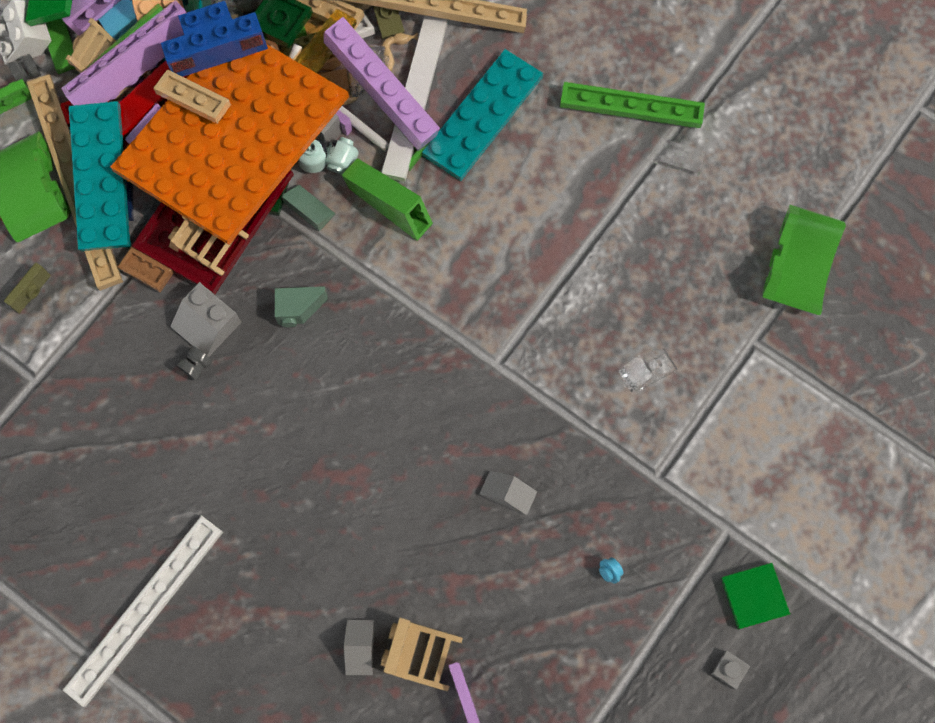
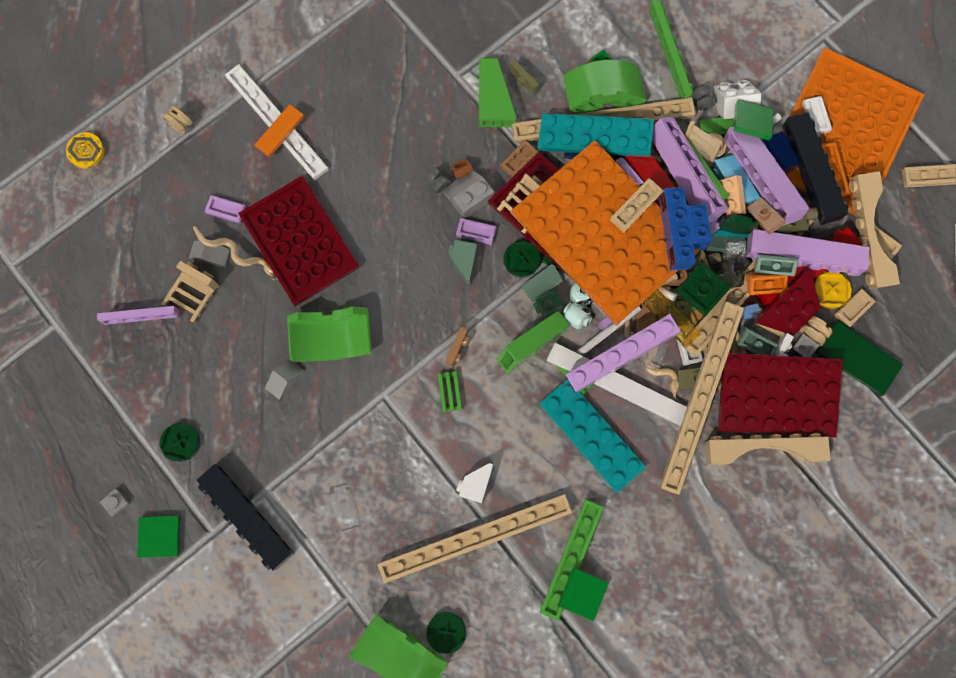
camera: 105 degrees right, 5 degrees up
(61, 320) = (494, 99): none -> bright green slope
(159, 595) = (279, 130): none -> orange tile
(171, 337) = (461, 168): none -> dark orange plate
(255, 302) = (476, 231): none -> lavender tile
(281, 238) = (521, 259): none -> dark green tile
(290, 643) = (224, 209): none -> lavender tile
(314, 526) = (298, 241): none -> dark red plate
(333, 191) = (555, 305): none -> clear green brick
(361, 559) = (234, 252): none -> tan animal
(407, 284) = (461, 340): none -> medium nougat plate
(437, 445) = (329, 336): none -> bright green panel
(470, 275) = (447, 375): none -> bright green tile
(576, 224) = (475, 484): none -> white slope
(611, 570) = (206, 436): medium azure plate -> none
(627, 607) = (179, 442): none -> dark green tile
(642, 215) = (474, 538): none -> tan plate
(667, 84) = (583, 594): none -> green tile
(697, 489) = (245, 517): none -> black brick
(755, 221) = (446, 632): none -> dark green tile

